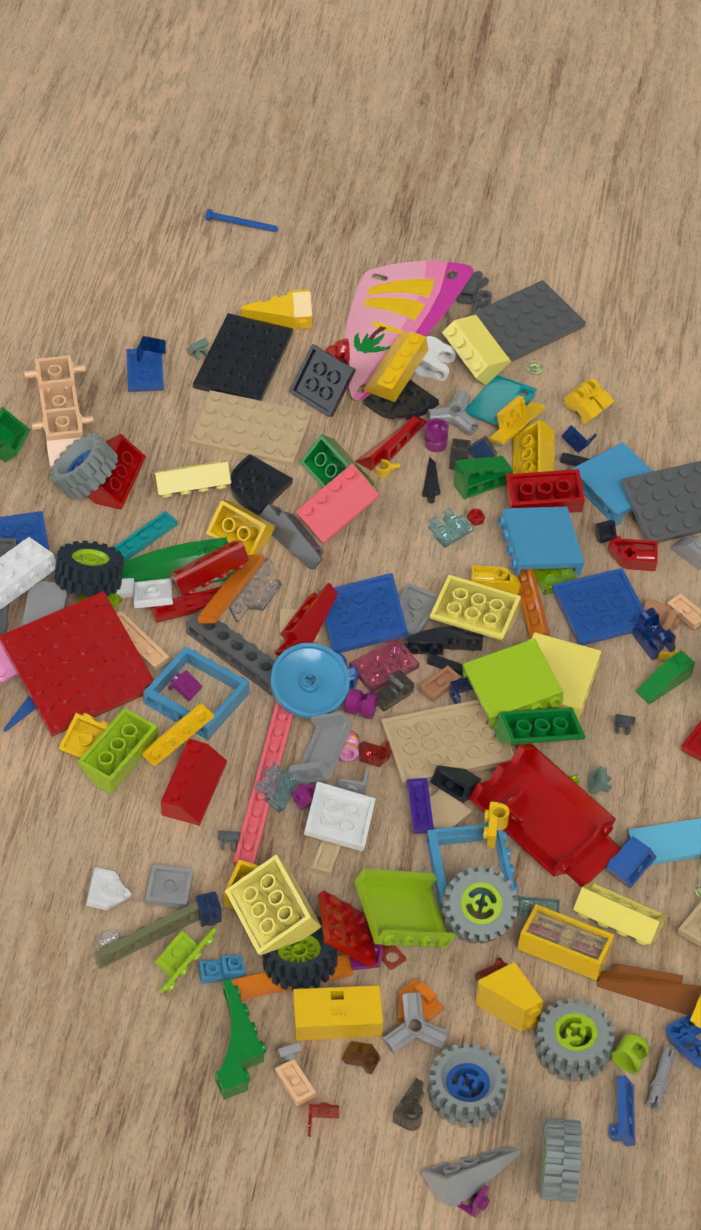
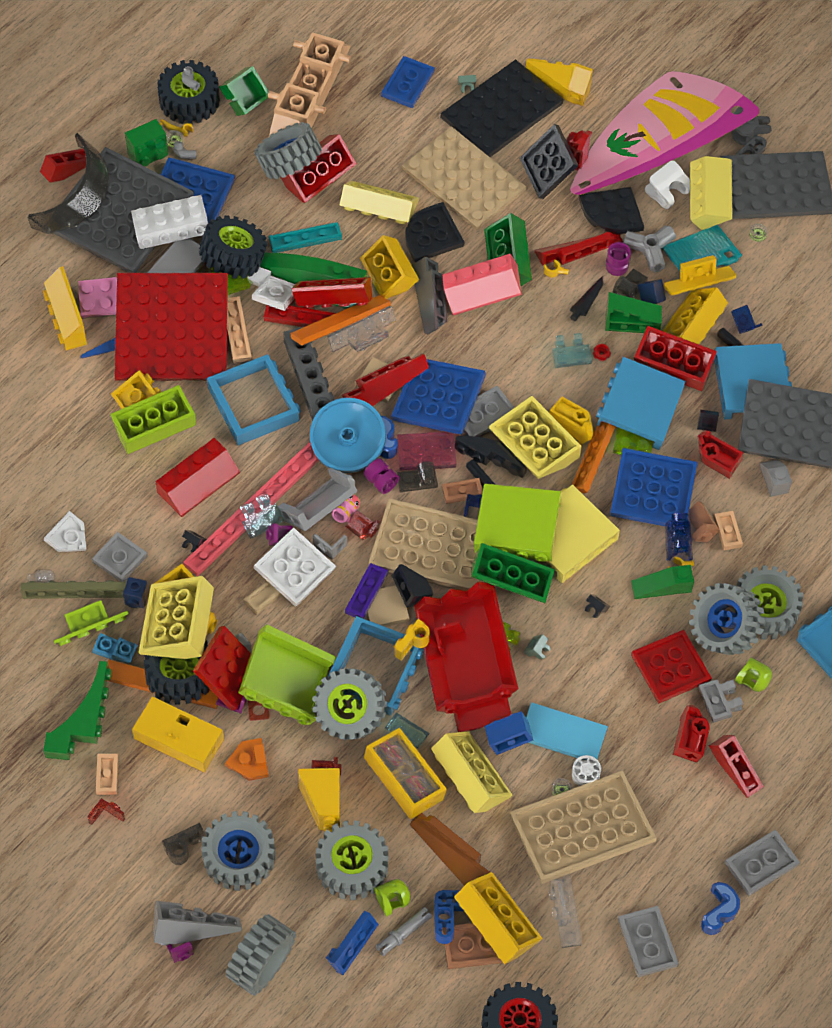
camera: 30 degrees right, 10 degrees up
(152, 345) = (420, 58): clear blue bracket -> none
(178, 734) = (206, 429): yellow bracket -> none
(185, 685) = (242, 389): magenta bracket -> none
(288, 1052) = (118, 746): light grey plate -> none
(362, 1055) = (174, 781): reddish brown bracket -> none
(398, 366) = (624, 178): yellow slope -> none
(403, 1034) = (238, 789): light grey piece -> none
(588, 400) = (780, 288): yellow hips -> none

